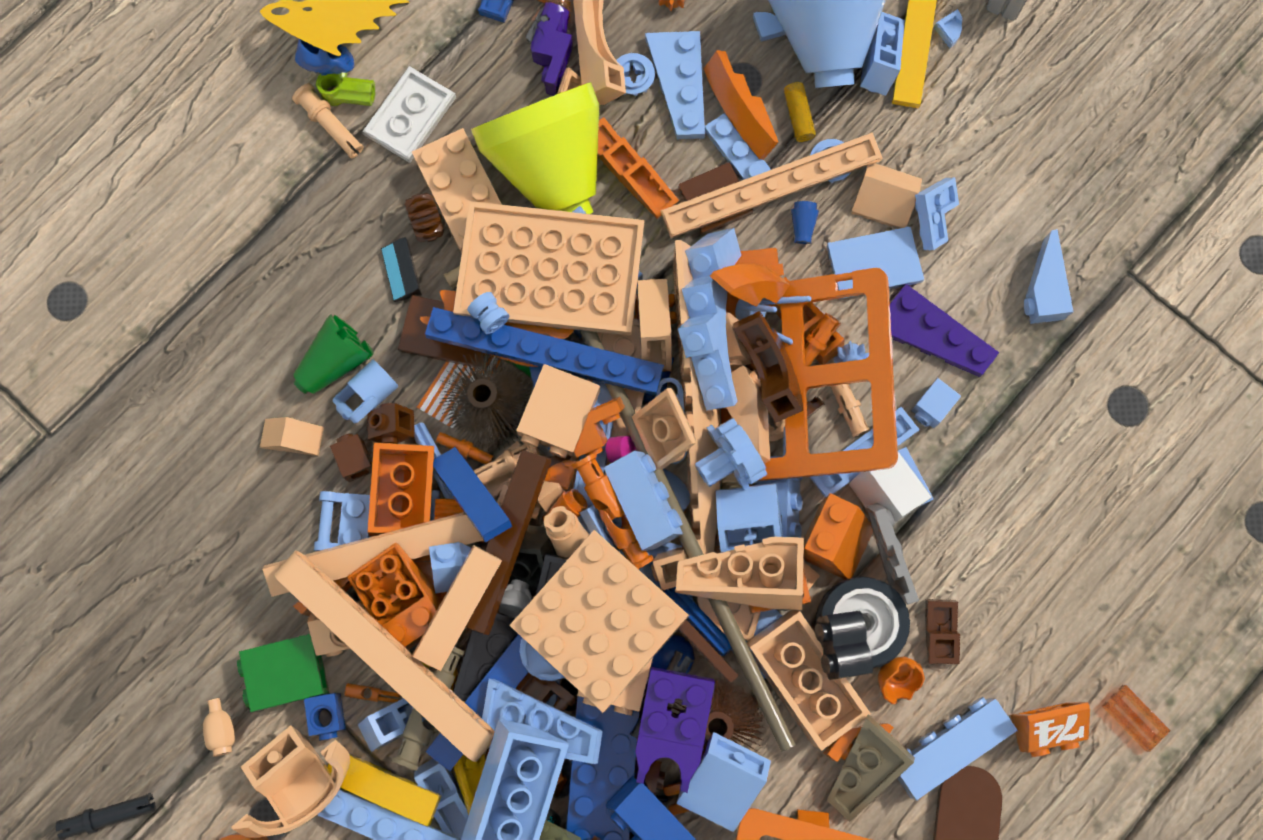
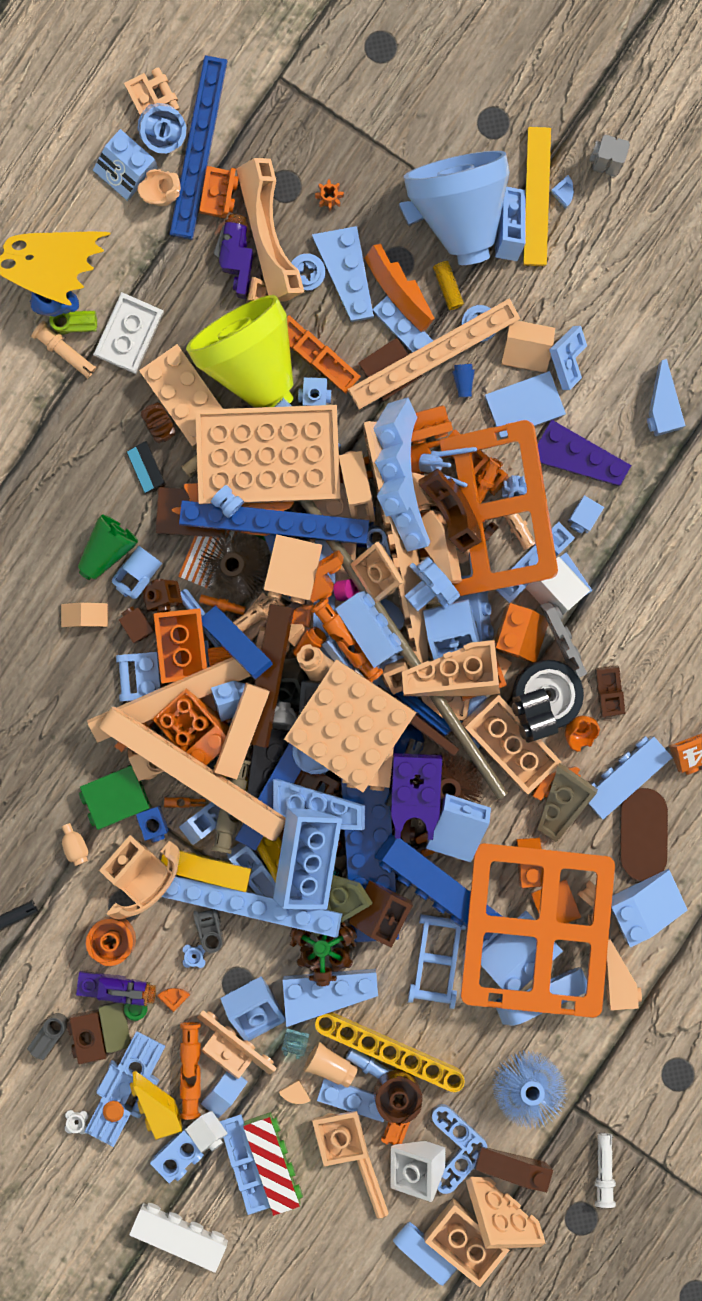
camera: 10 degrees left, 10 degrees up
(620, 204) = (314, 386): none -> light blue brick
(751, 282) = (428, 446): orange slope -> none

